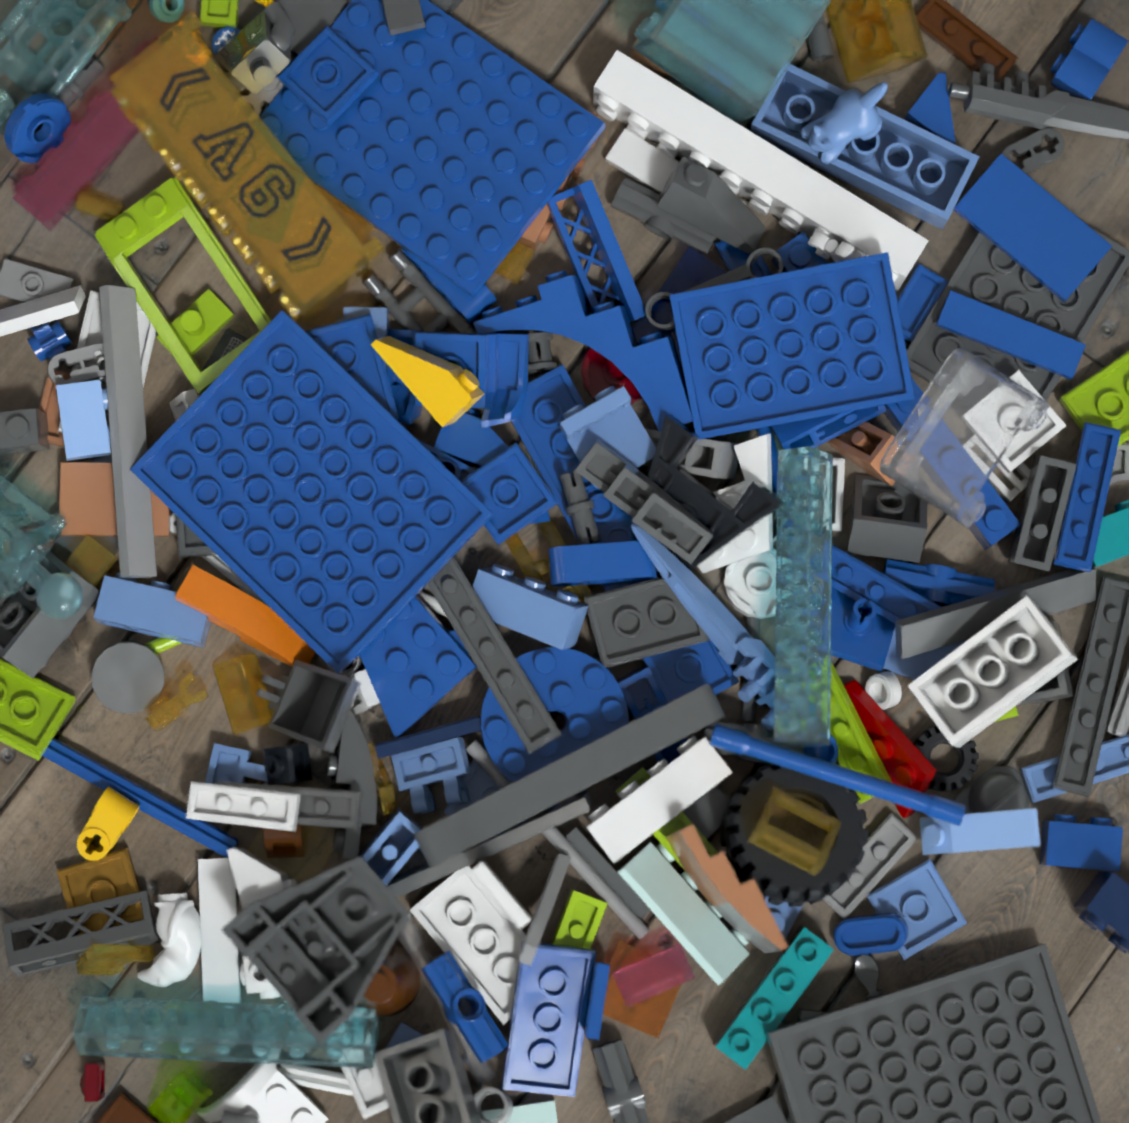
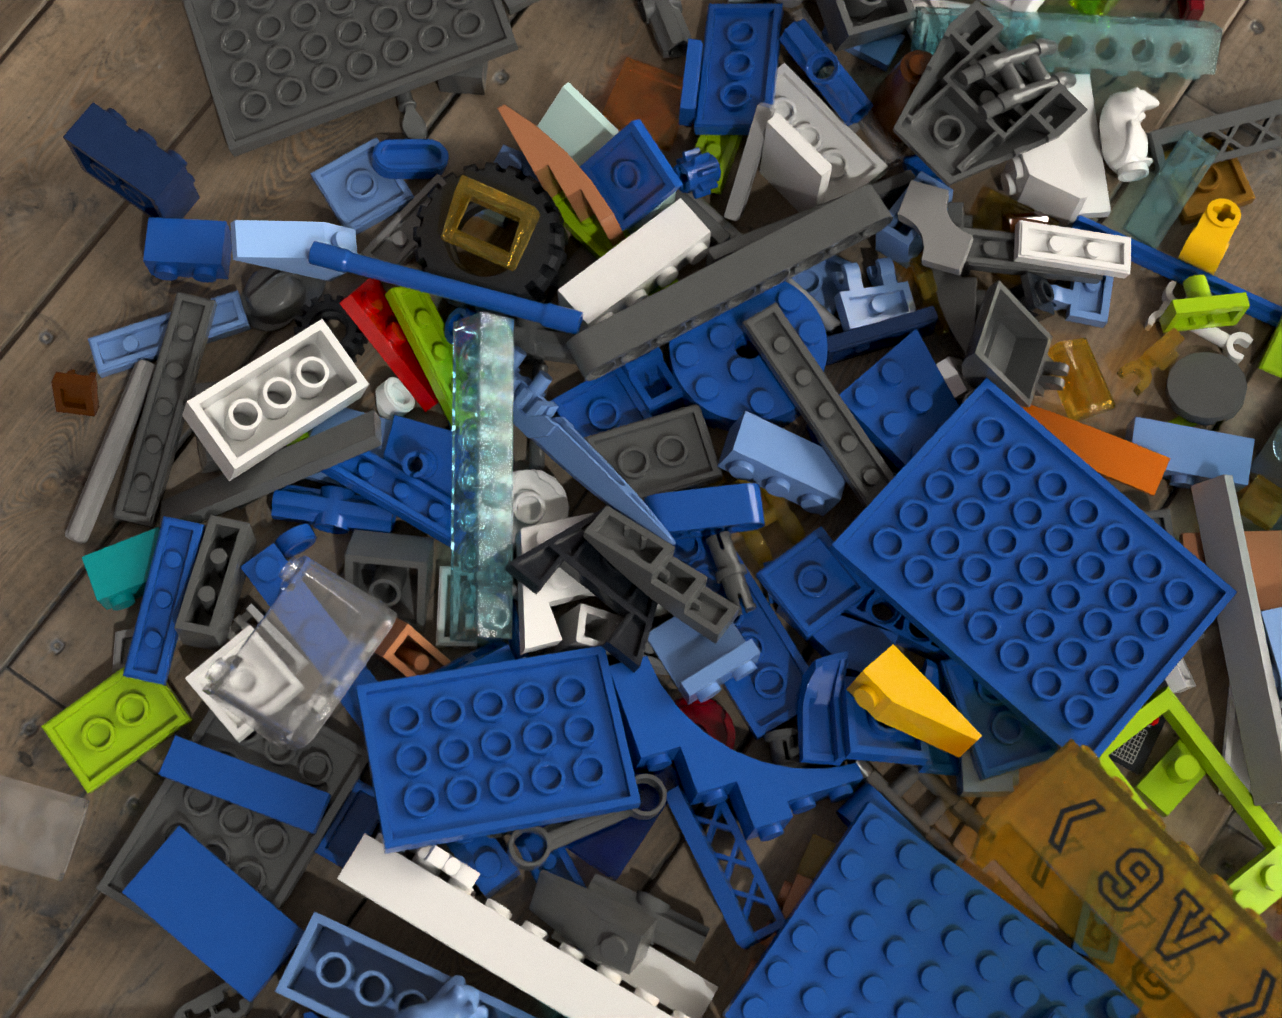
camera: 175 degrees right, 10 degrees down
(110, 959) = (1185, 113): clear yellow tile -> none
(124, 752) = (1202, 309): none -> lime tile
(139, 875) = (1170, 189): none -> clear light blue tile
(149, 757) = (1213, 335): none -> white bar
(298, 976) = (1018, 91): none -> dark grey piece
(368, 809) = (926, 212): none -> light grey tile
(596, 898) = (697, 172): none -> blue gear
(653, 975) = (647, 103): clear pink tile -> none
(660, 882) = (632, 174): none -> blue plate
(773, 997) = (517, 85): teal piece -> none
(971, 556) = (296, 540): none -> blue tile

